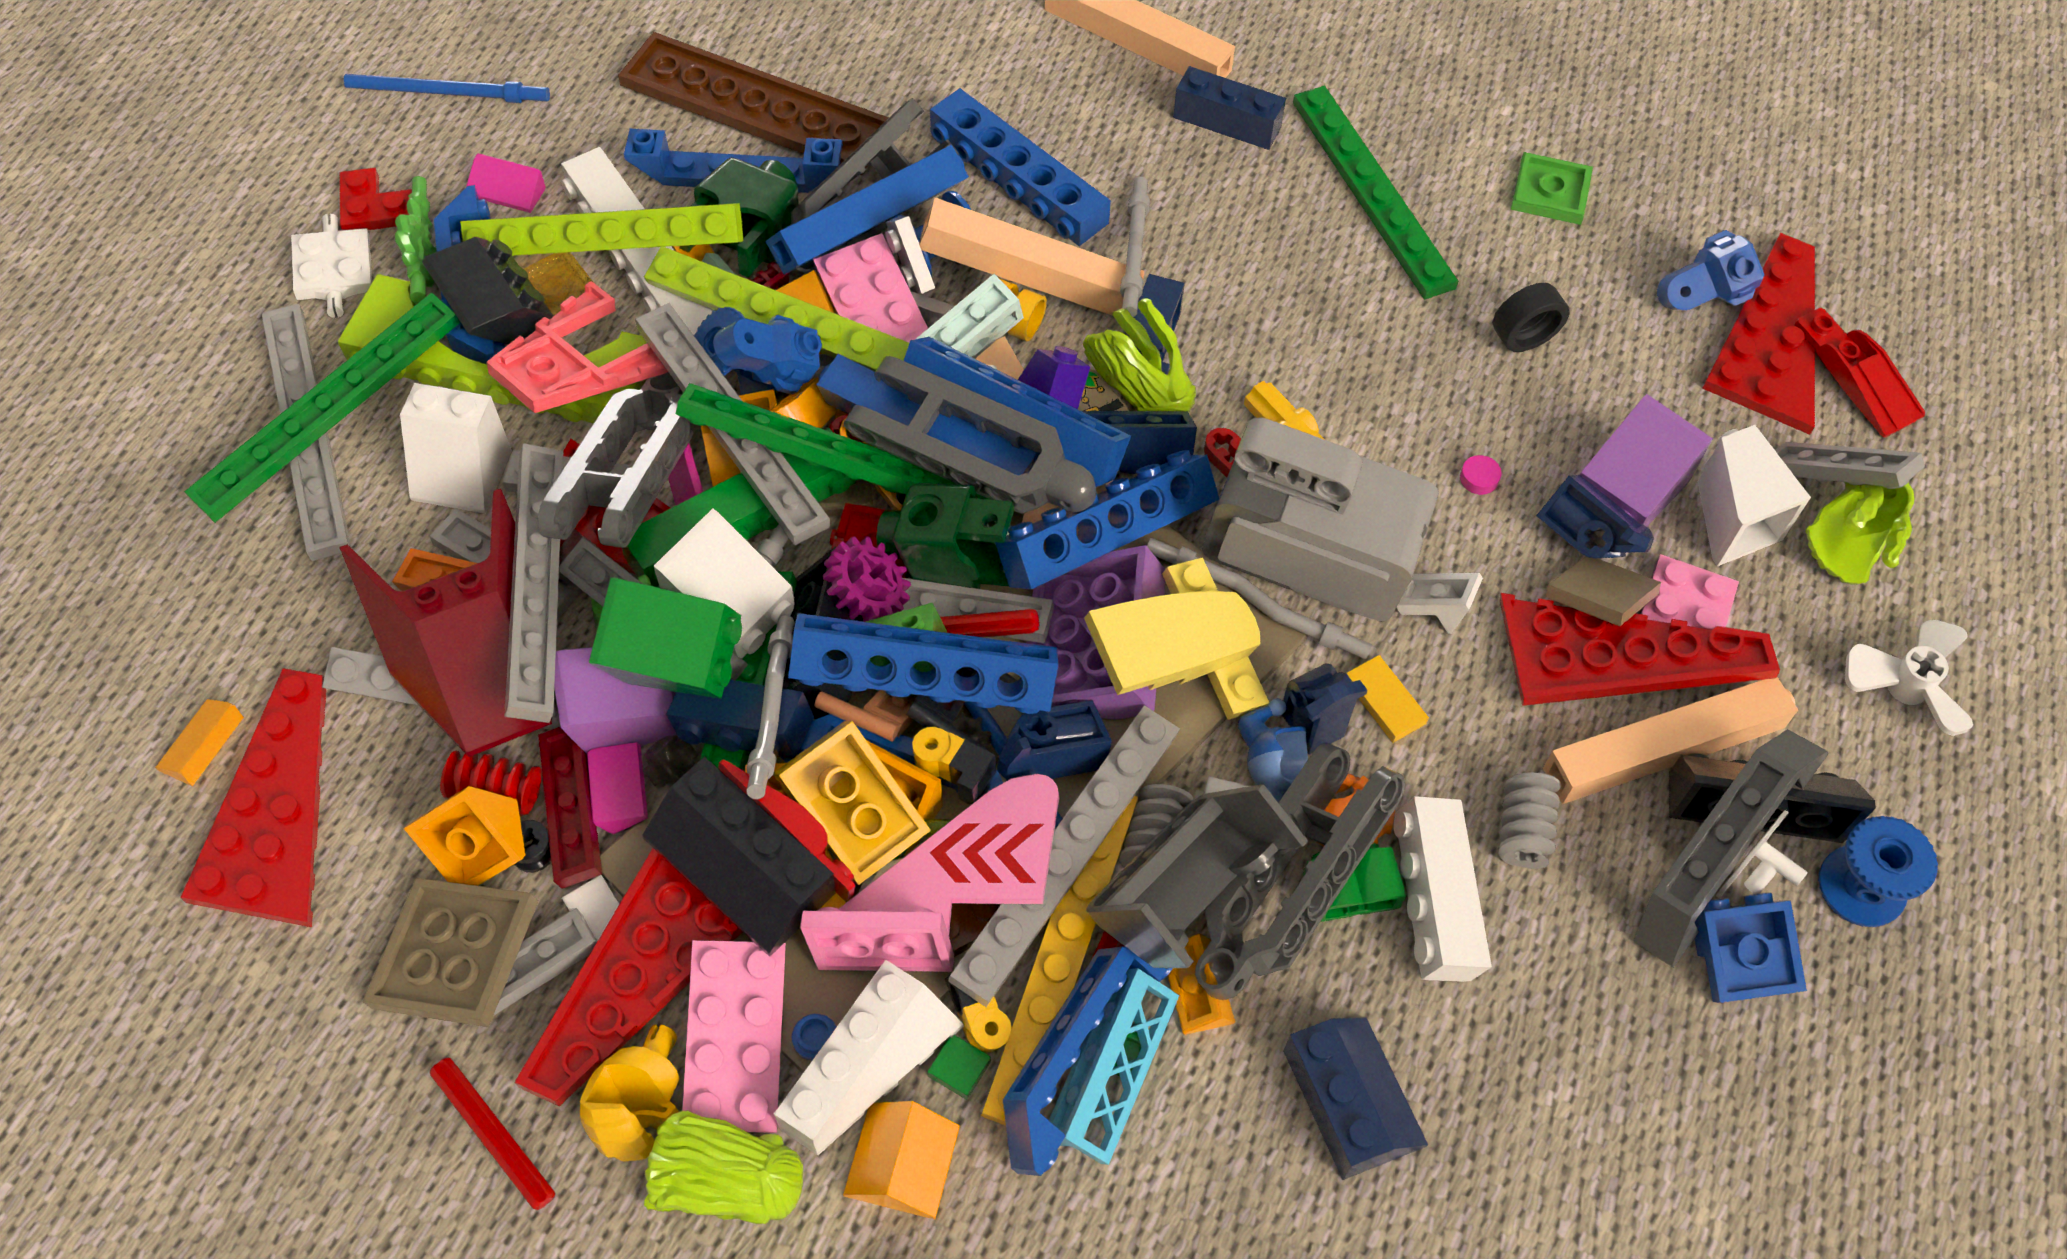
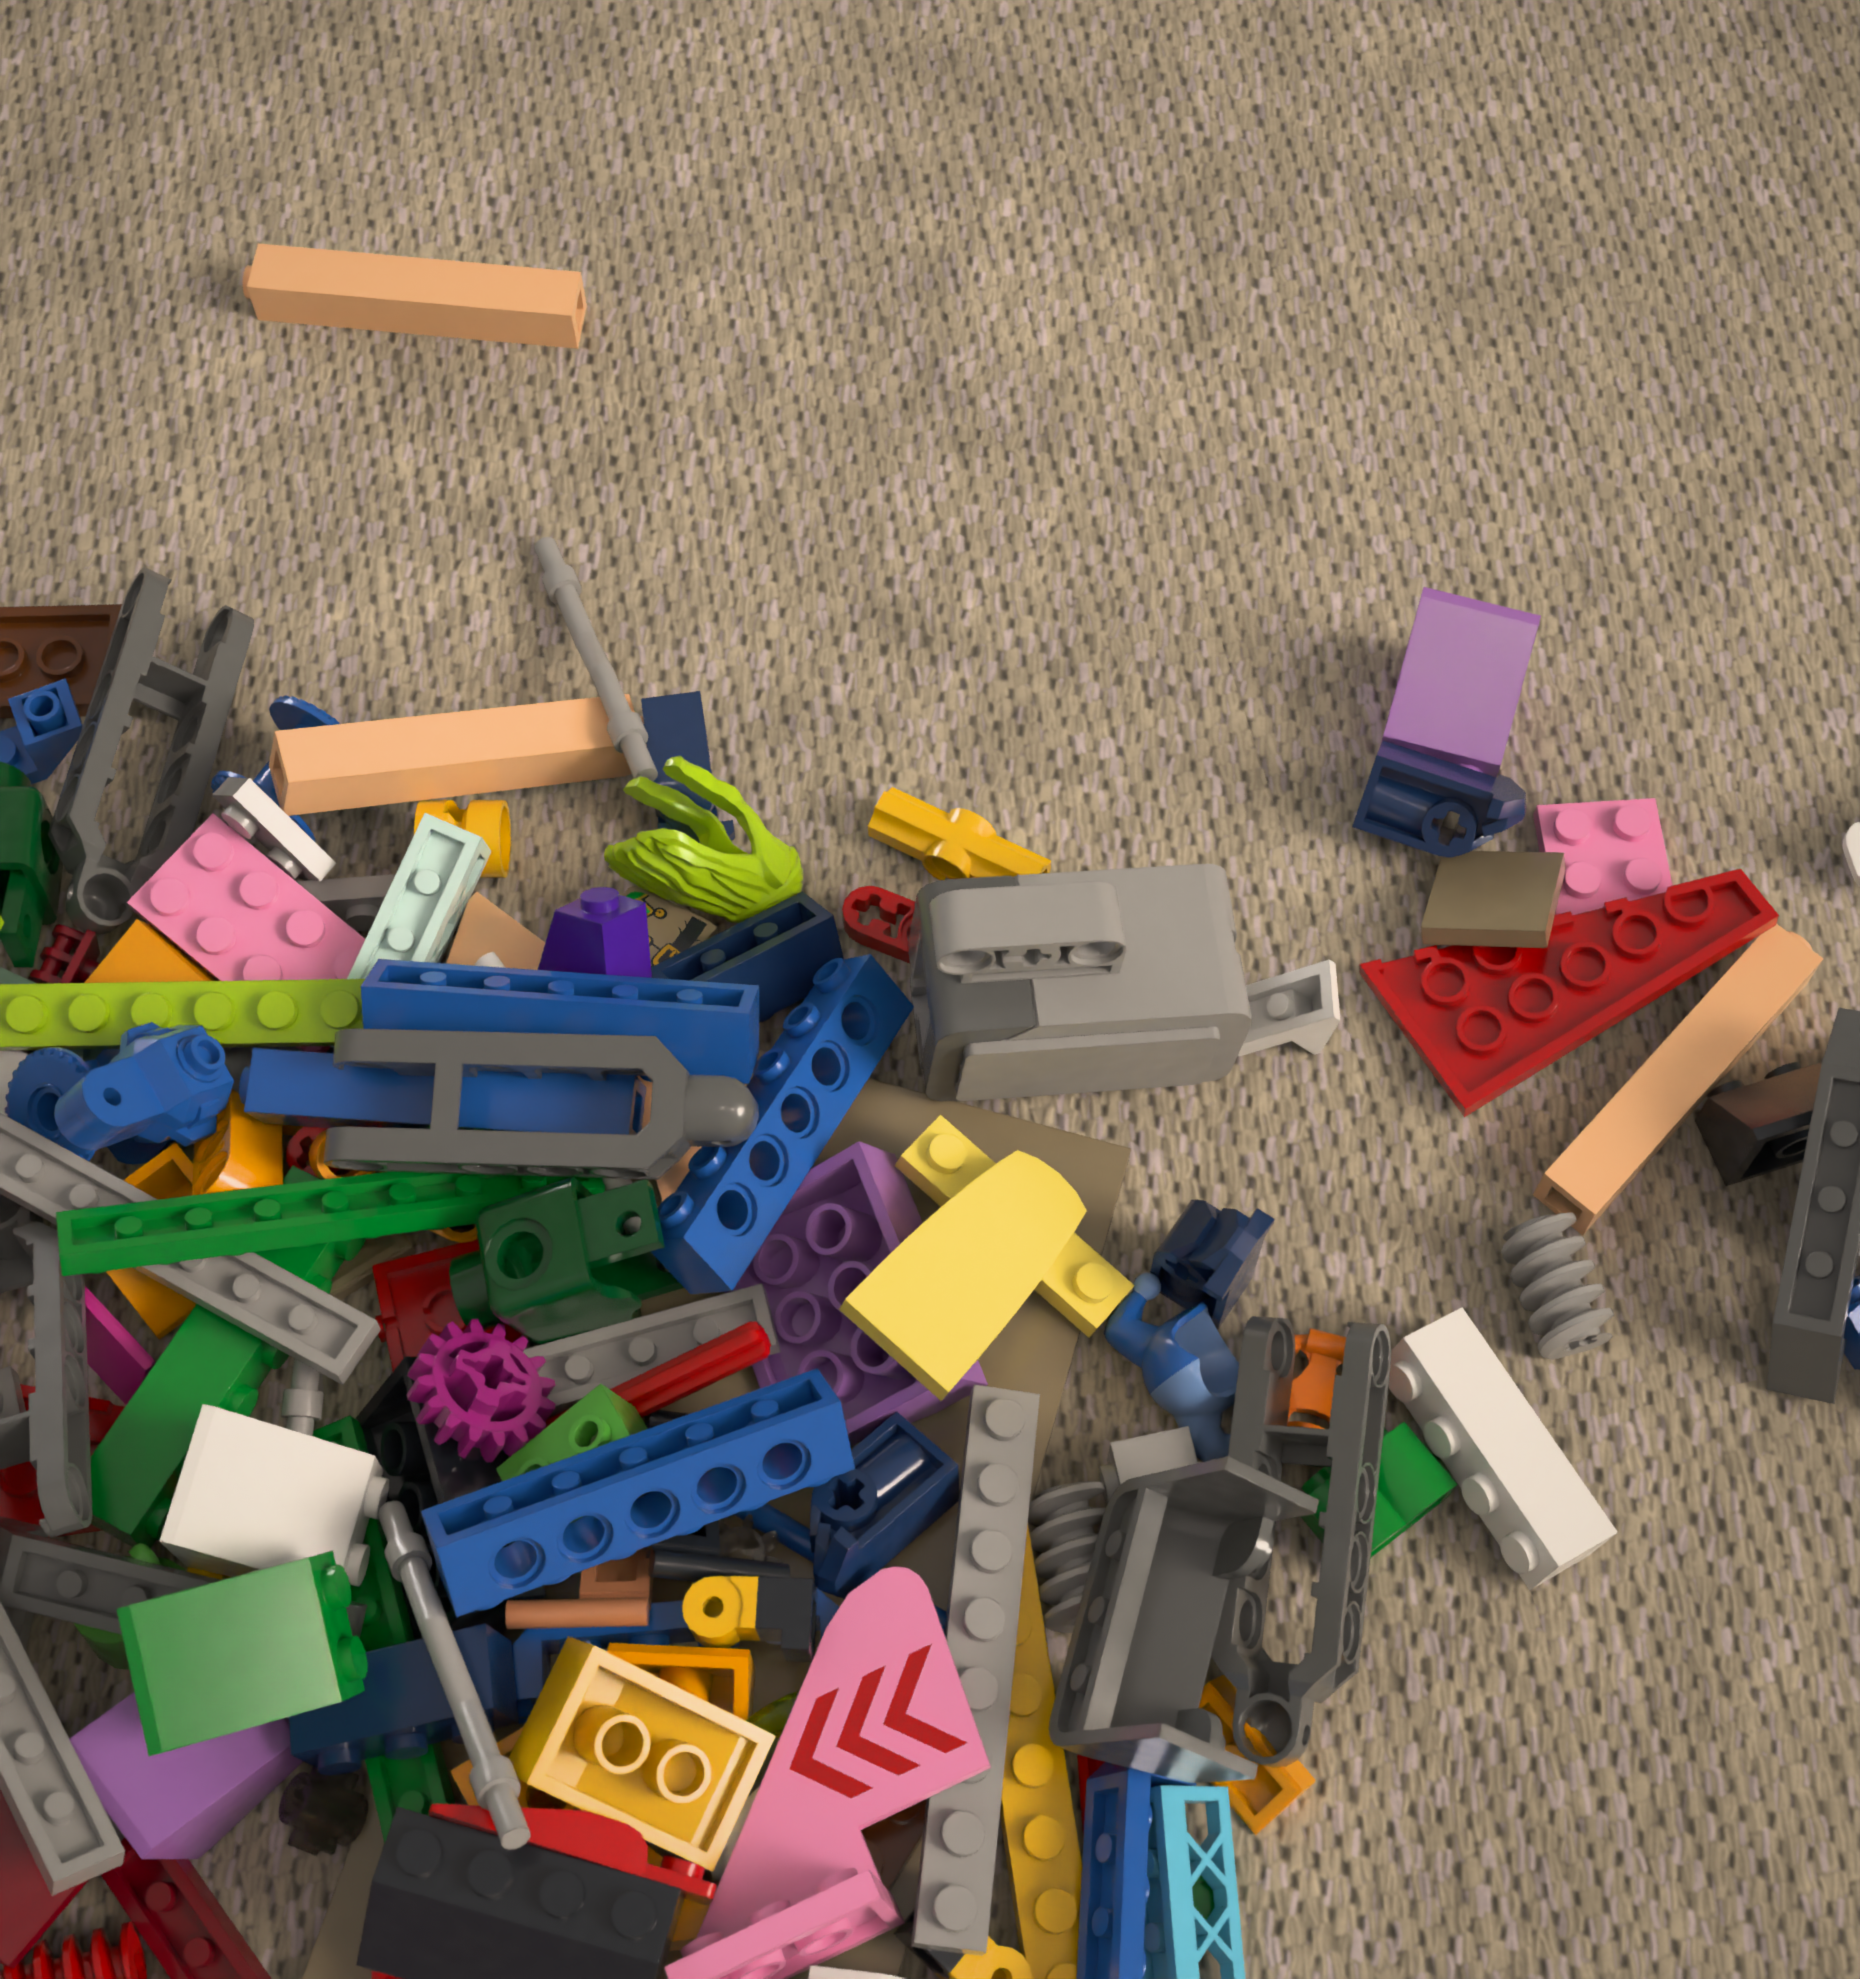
camera: 25 degrees left, 5 degrees up
(617, 786) = (261, 1888): dark pink slope -> none
(866, 209) = (168, 785): blue brick -> none
(1020, 167) = (332, 579): blue brick -> none
(1229, 107) = (617, 373): dark blue brick -> none
(1328, 635) = (1161, 1140): light grey bar -> none
(1353, 1094) = (1526, 1808): dark blue slope -> none
(1375, 193) = (887, 416): green plate -> none
(1388, 699) = (1299, 1202): yellow tile -> none
(1480, 474) = (1244, 794): dark pink tile -> none
(1530, 317) = (1203, 526): black tyre -> none
(1552, 188) = (1129, 305): bright green tile -> none
(1722, 270) = (1419, 342): piece -> none
(1747, 495) = (1611, 670): white slope -> none
(1767, 357) = (1529, 425): red wing -> none
(1851, 464) = (1717, 572): light grey plate -> none
(1857, 527) = (1767, 642): lime hair -> none
(1863, 373) = (1665, 411): red piece -> none

